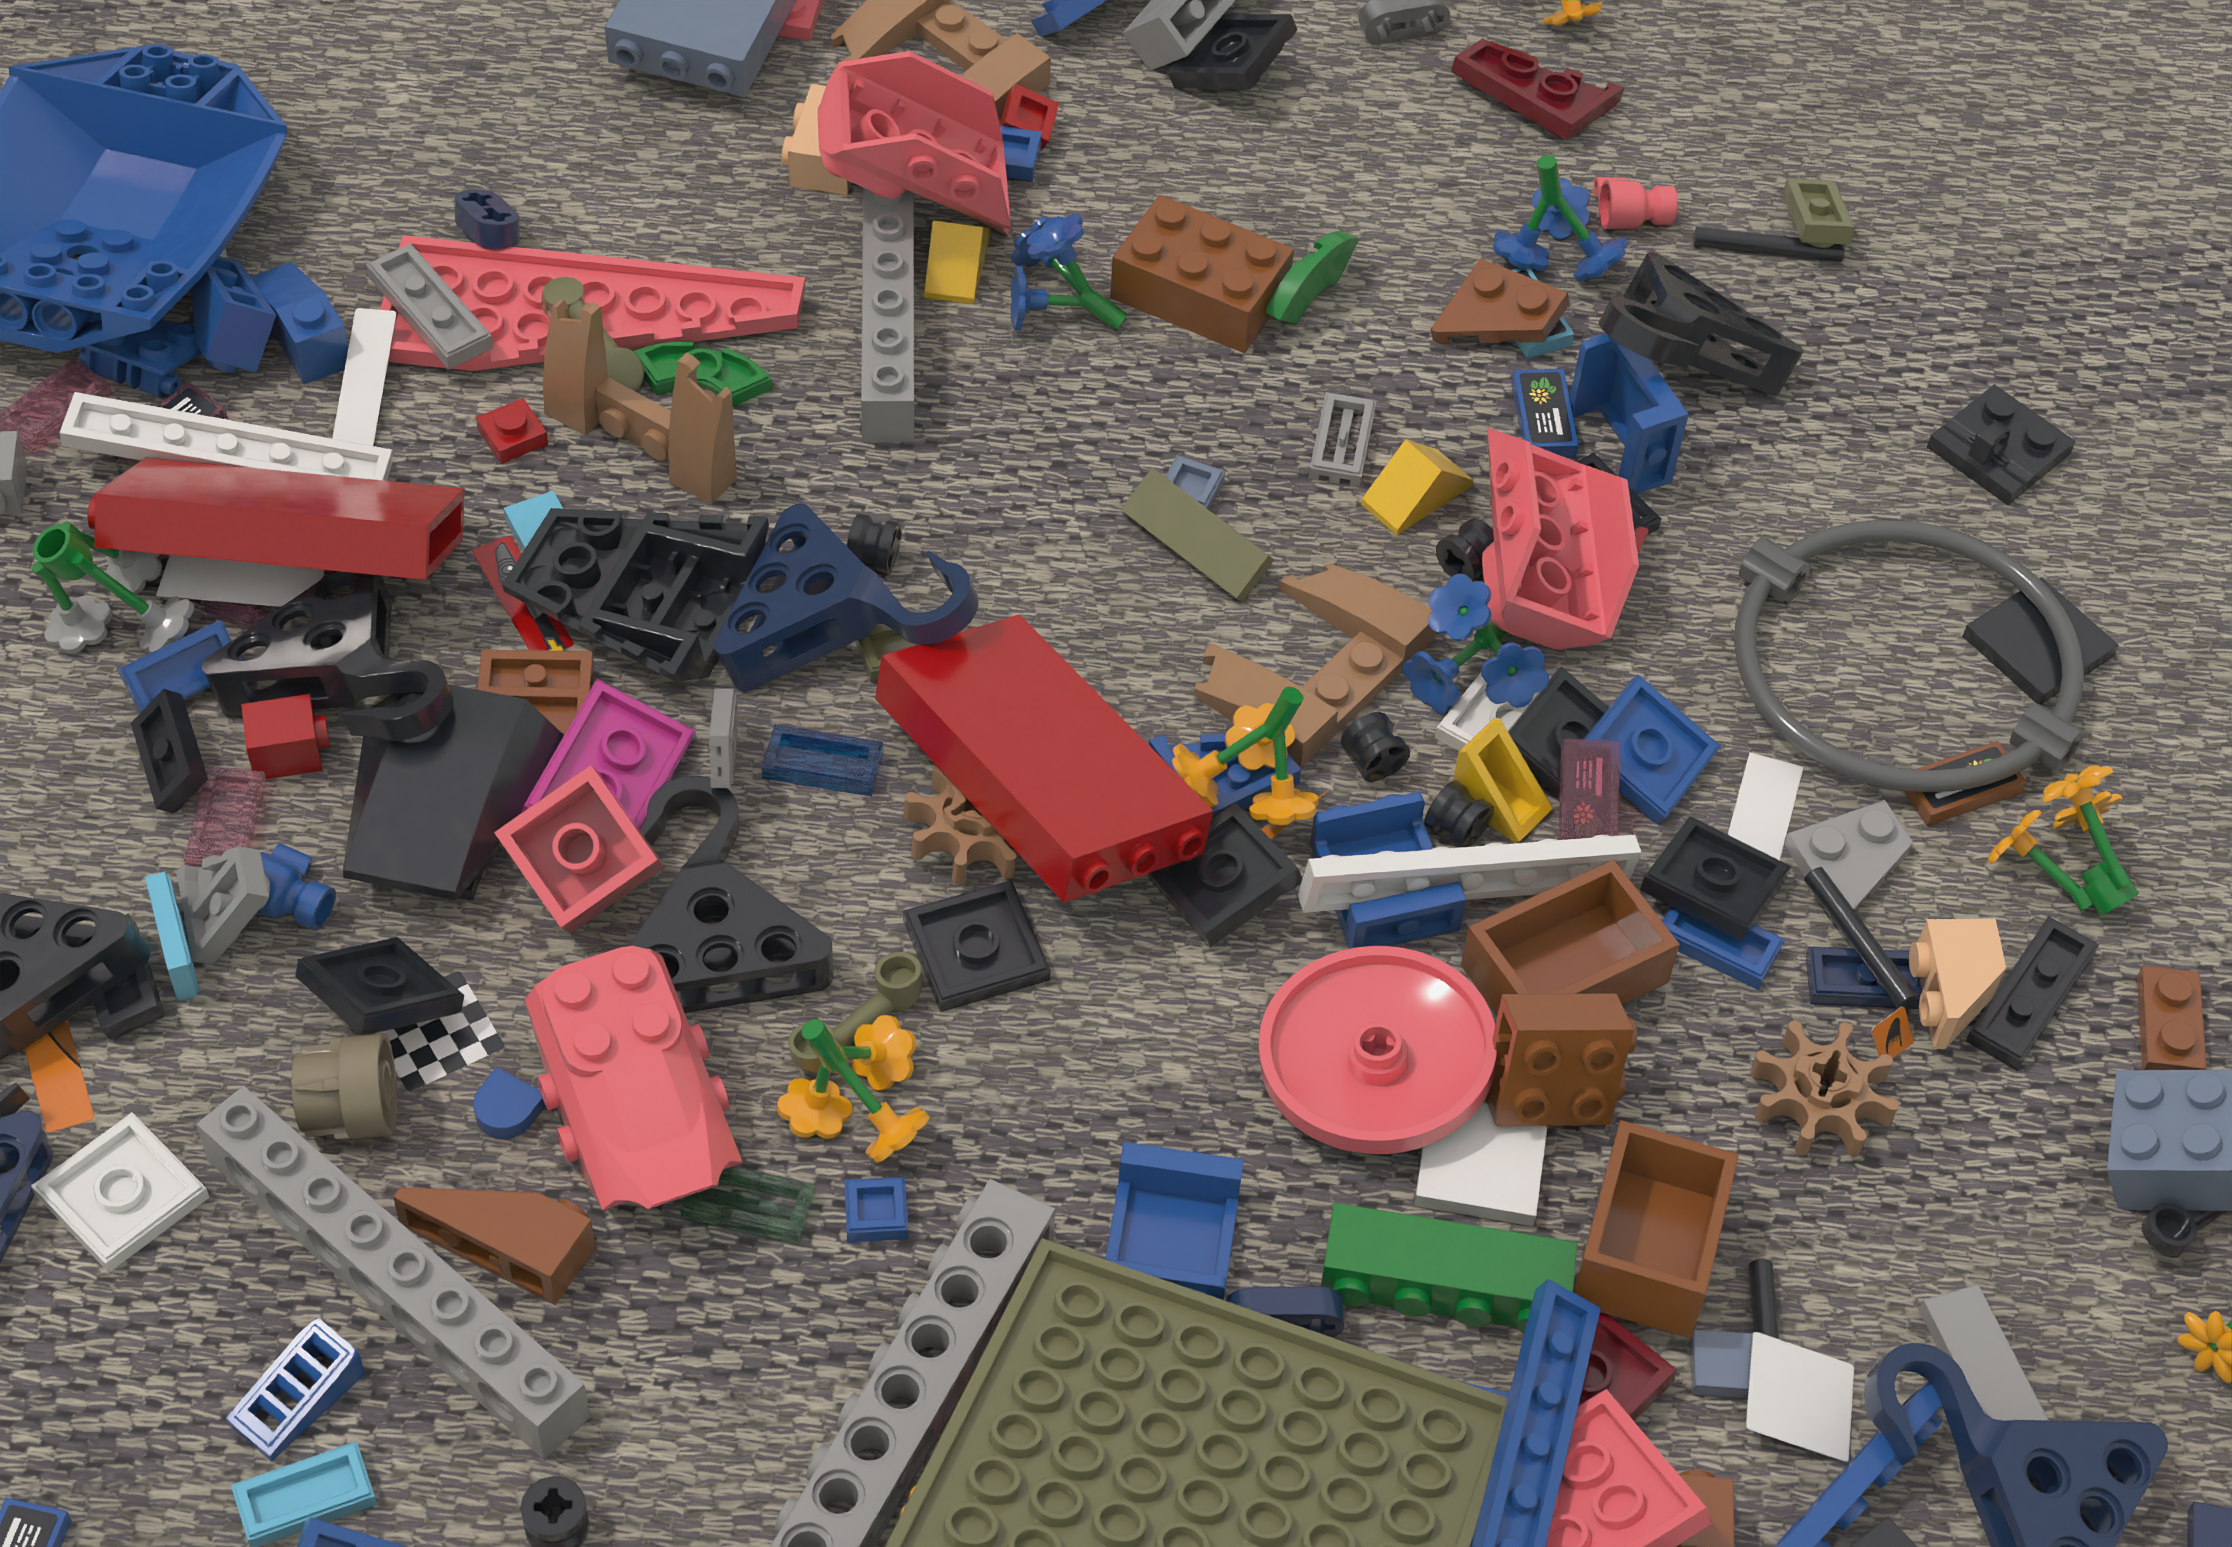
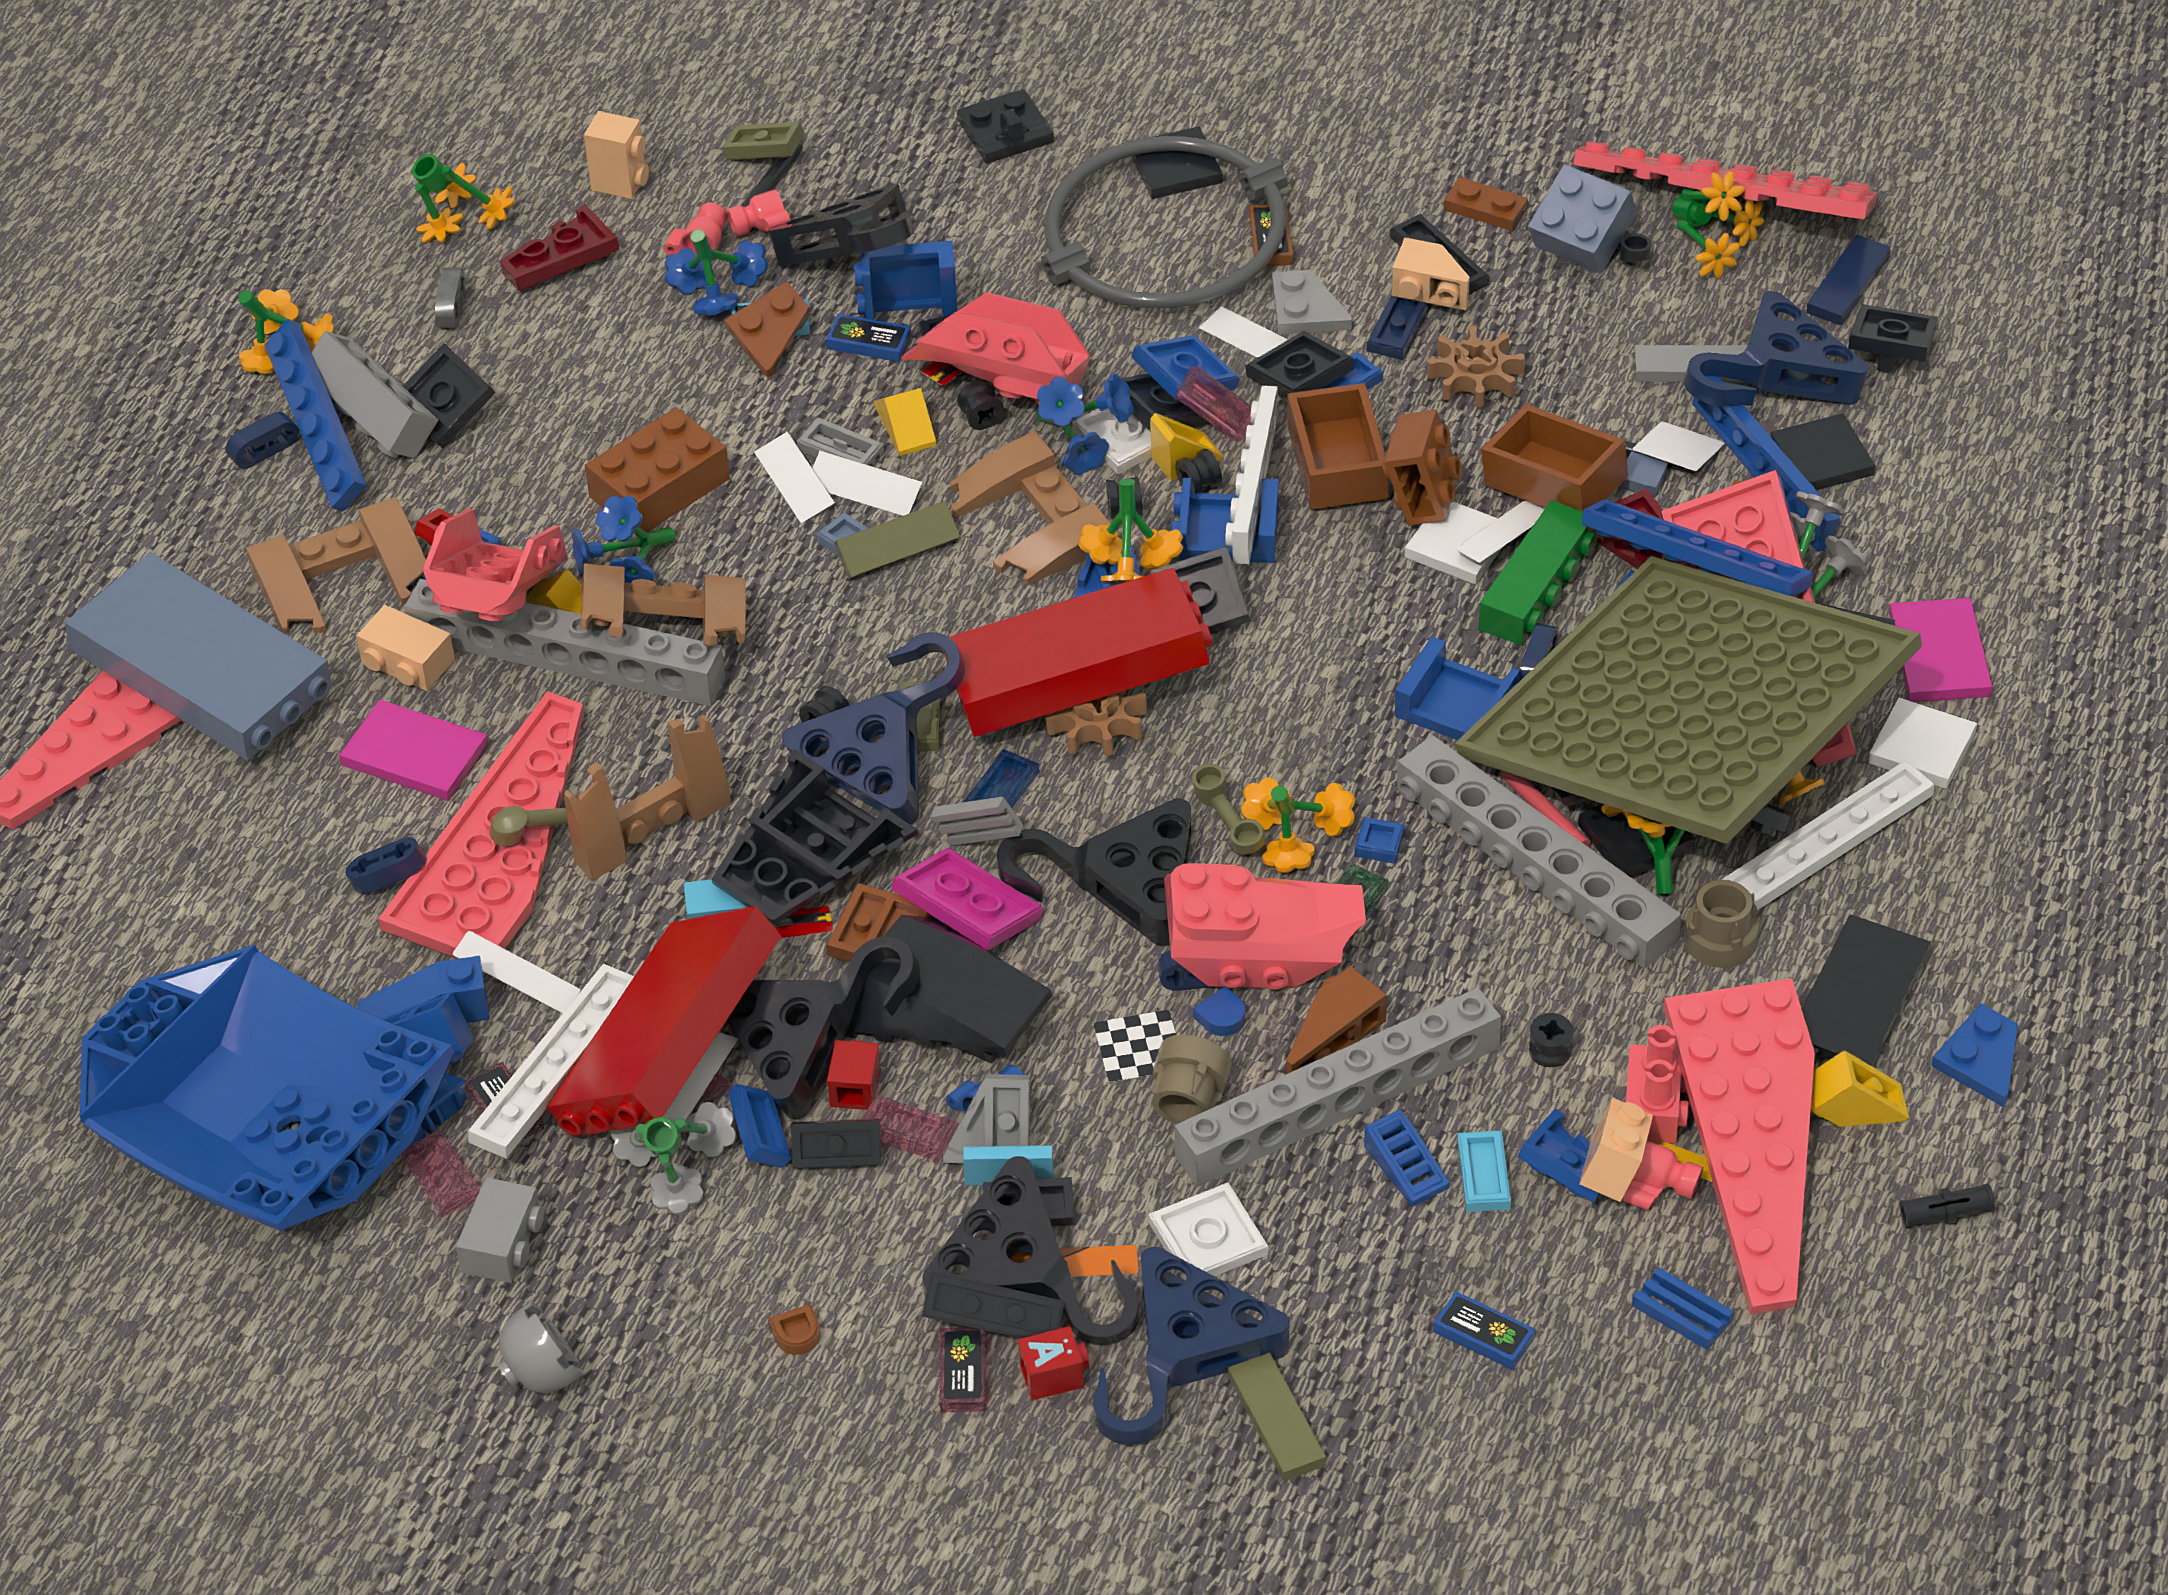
camera: 65 degrees left, 5 degrees down
(379, 986) = (1110, 1048): black tile -> none
(429, 306) = (470, 911): light grey tile -> none
(512, 430) = (606, 898): red plate -> none
(579, 849) = (1050, 909): coral brick -> none
(686, 198) = (413, 750): none -> dark pink tile
(714, 372) = (619, 764): green tile -> none
(976, 945) = (1190, 739): black tile -> none
(996, 380) = (718, 604): none -> medium nougat wedge
(1270, 410) = (794, 477): none -> white sticker
(1287, 479) = (866, 483): none -> white sticker
(1312, 276) = (680, 395): green tile -> none
(1377, 1049) = (1370, 555): coral dish -> none
(1505, 1201) = (1501, 531): none -> white sticker
(1694, 249) = (761, 213): none -> coral piece
(1698, 77) = (616, 155): none -> light nougat brick
(1861, 938) = (1376, 313): black bar -> none
(1893, 1034) = (1448, 326): orange sticker -> none
(2105, 883) = (1382, 193): plant -> none

